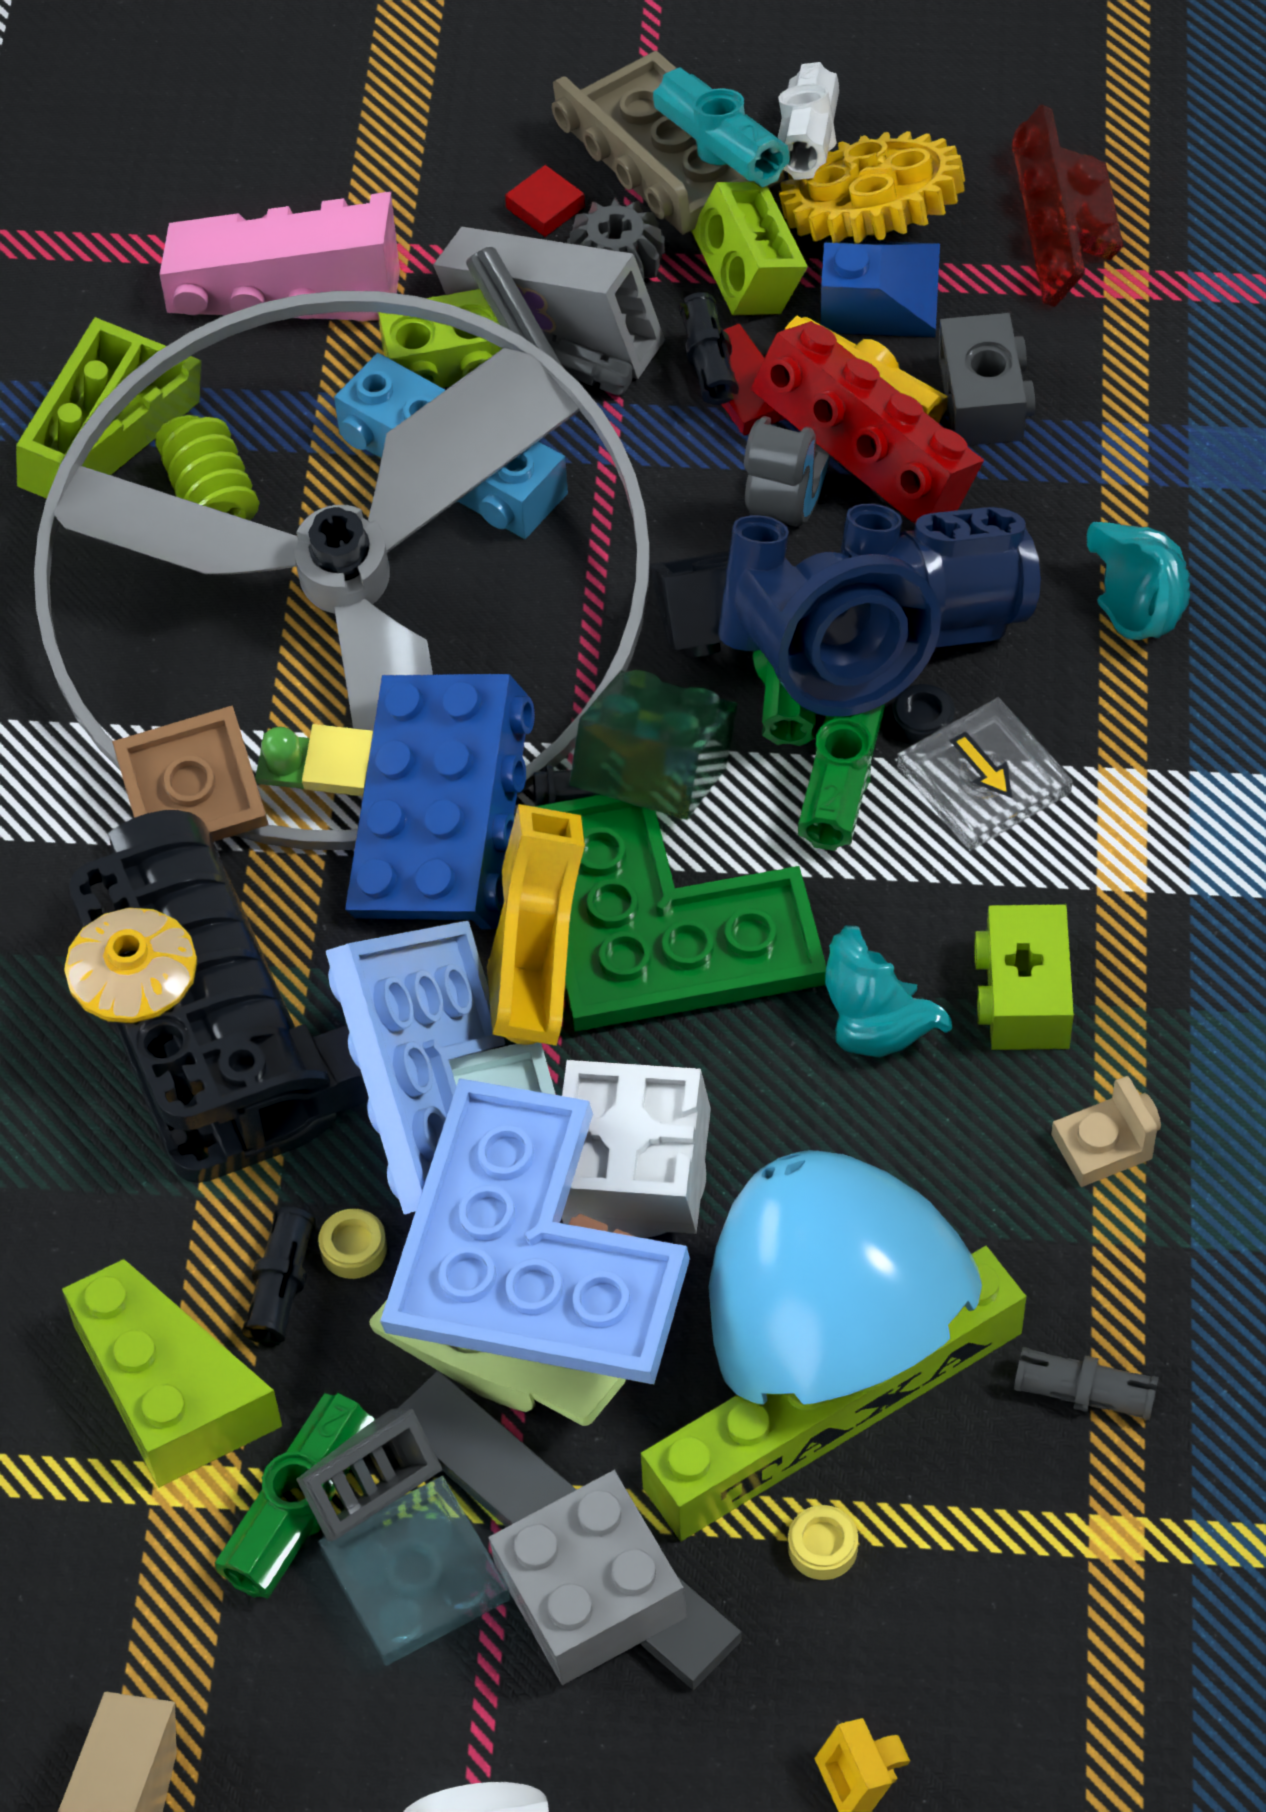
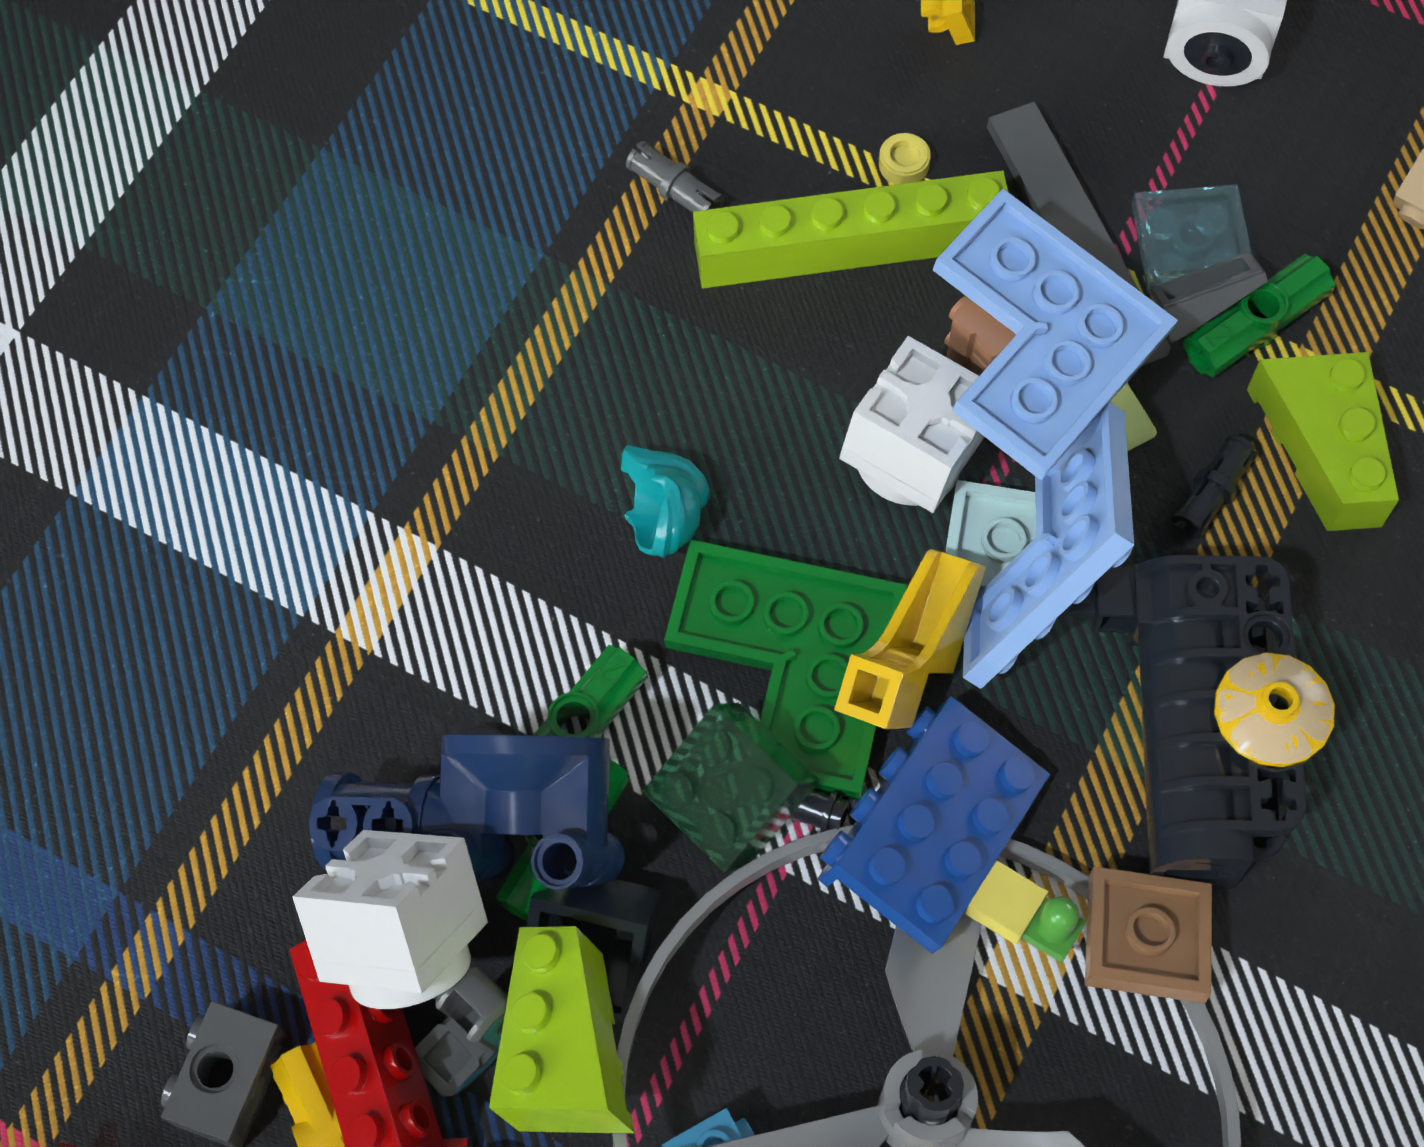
camera: 155 degrees left, 10 degrees up
(352, 1243) = (1151, 494): light yellow tile -> none
(588, 1577) = (1083, 160): light grey brick -> none
(687, 449) = (558, 1039): none -> lime wedge
(832, 1279) = (803, 203): medium azure piece -> none
(884, 441) = (393, 917): none -> white piece
(984, 773) = (465, 676): clear tile -> none
(1027, 977) = (541, 447): lime brick -> none
(1109, 1134) = (554, 341): tan bracket -> none
(1142, 579) = (229, 778): teal hair -> none

